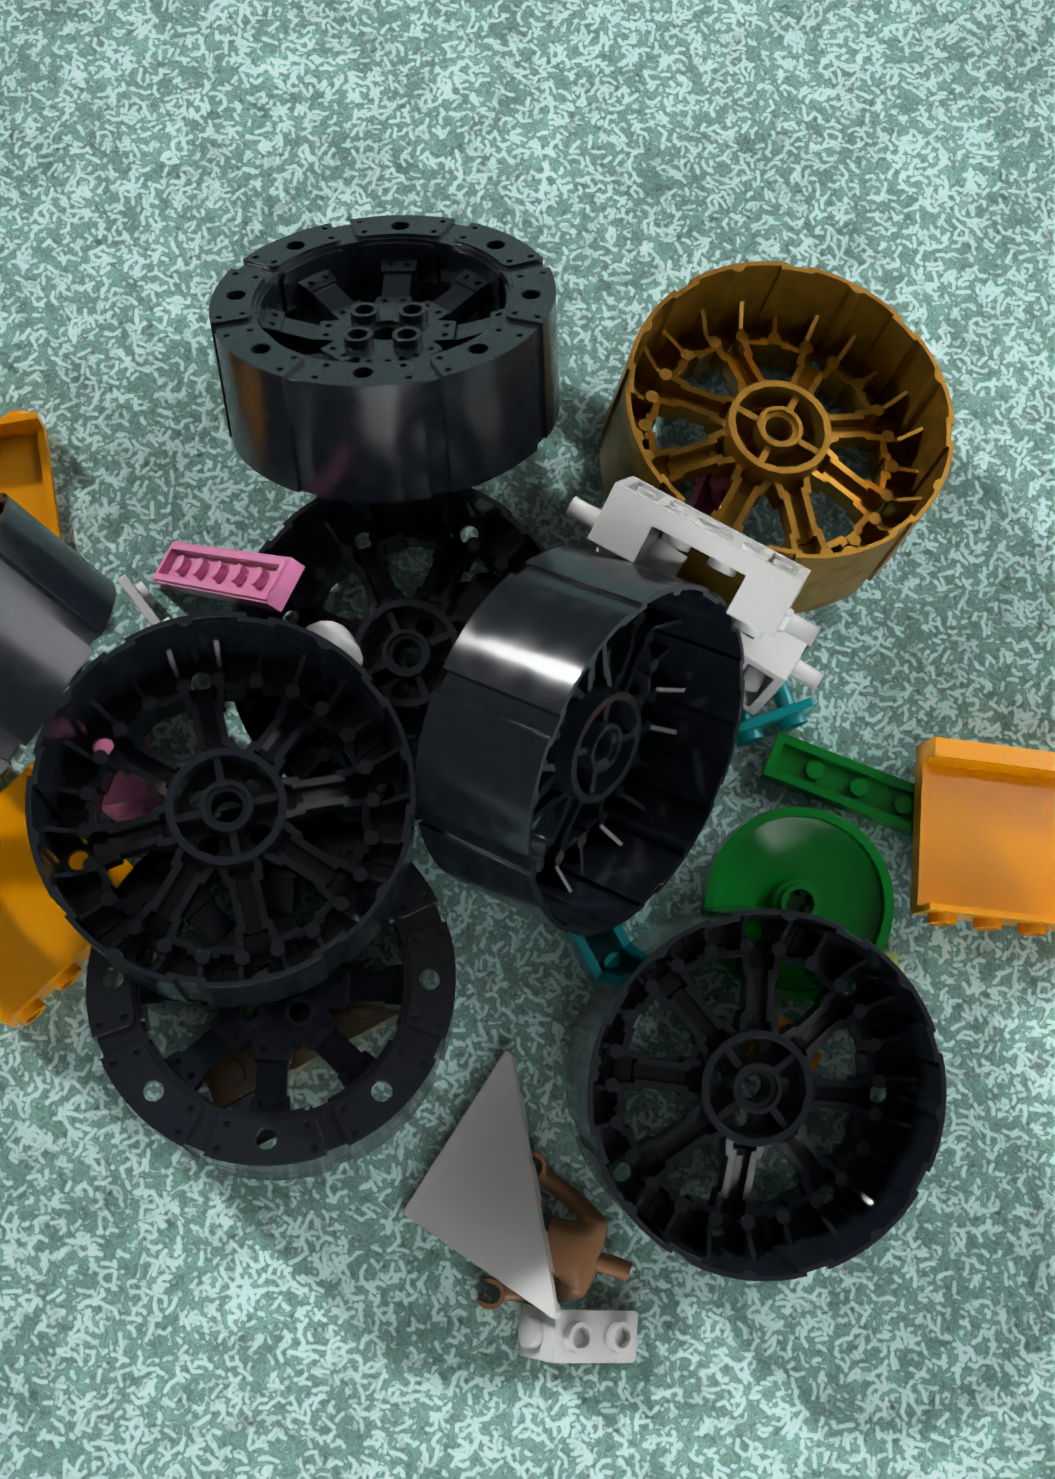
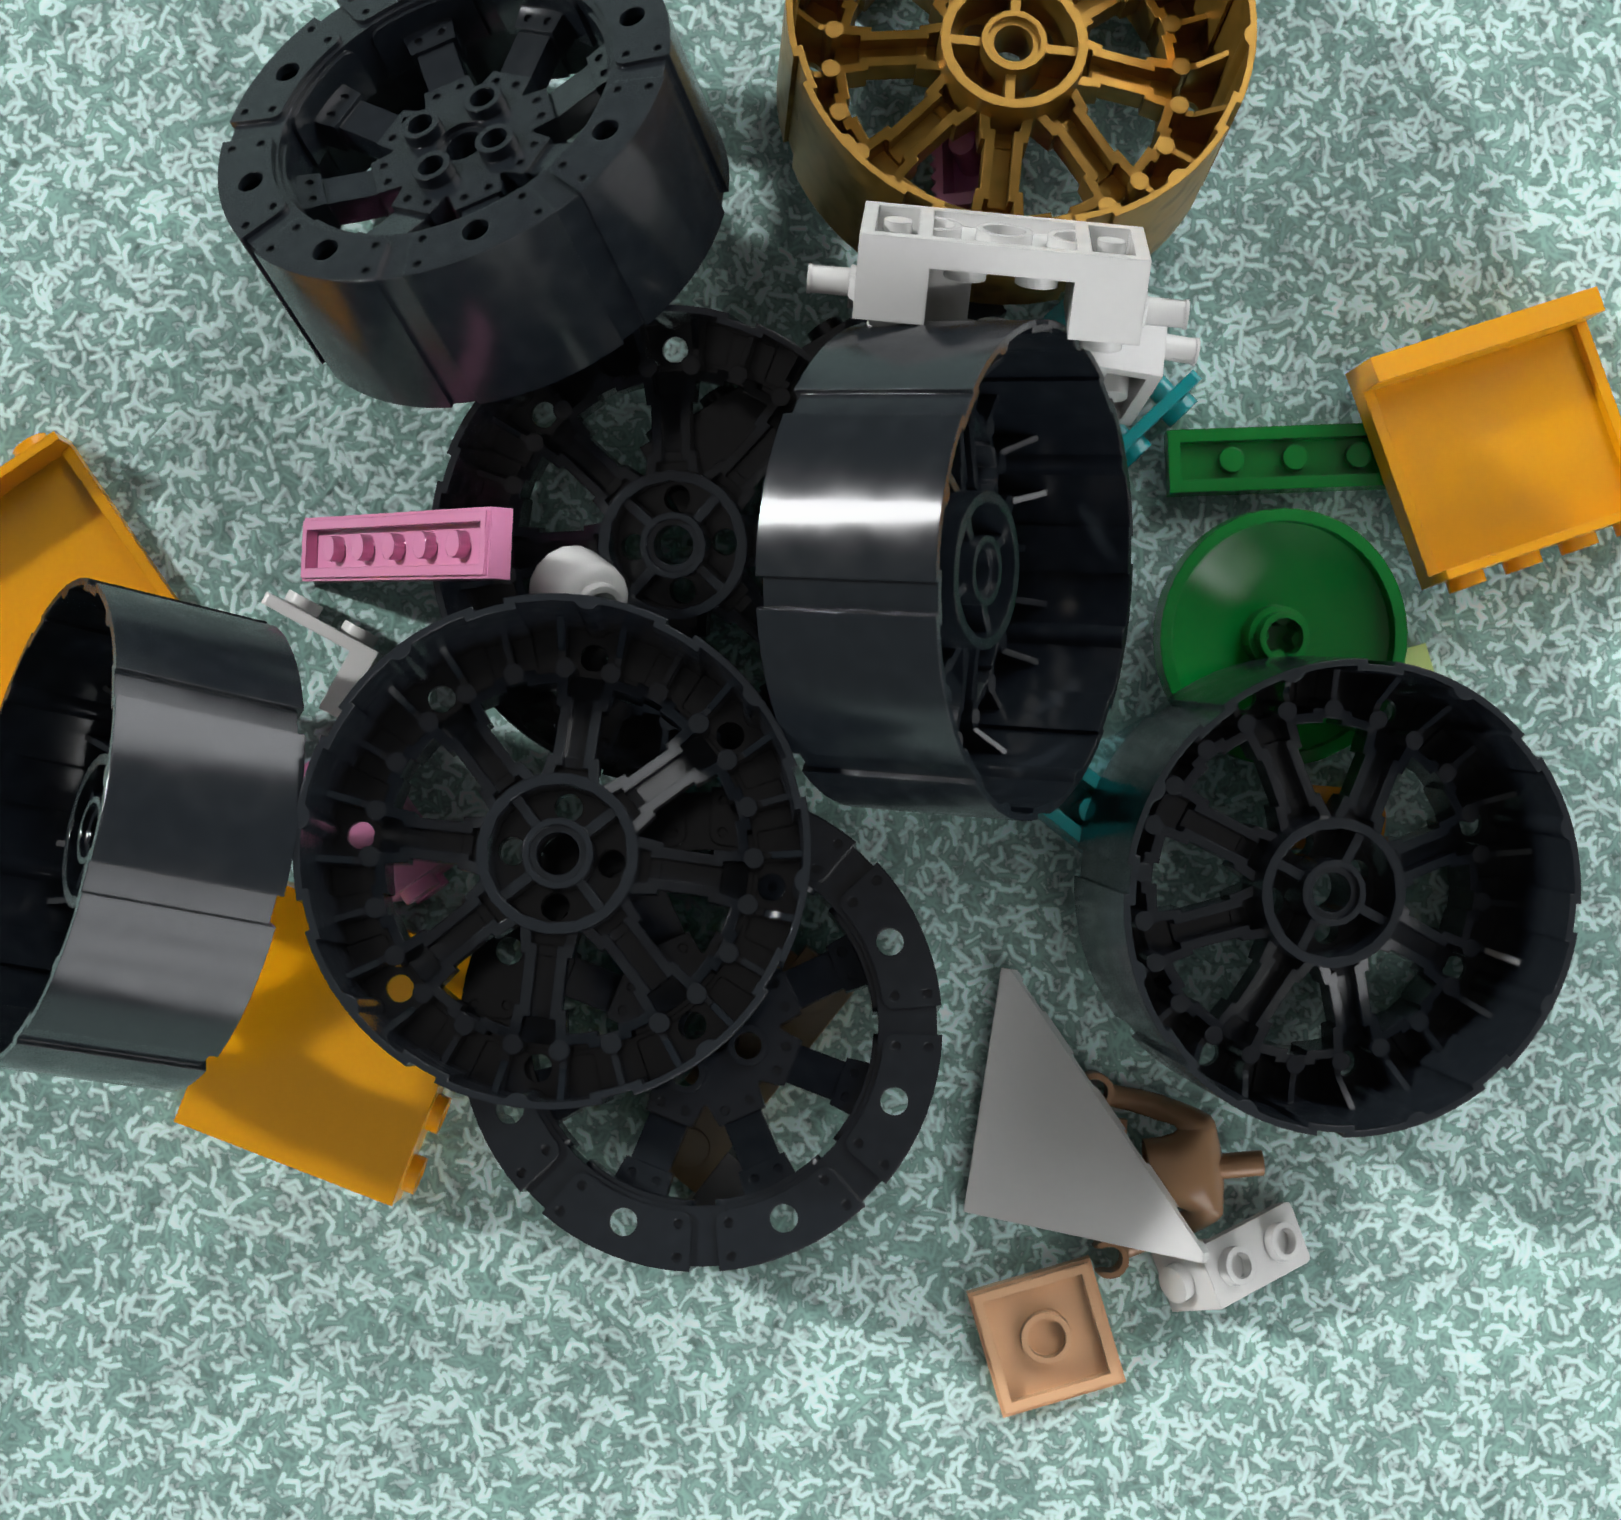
camera: 20 degrees left, 10 degrees up
(420, 1332) = (1046, 1336): none -> light nougat tile

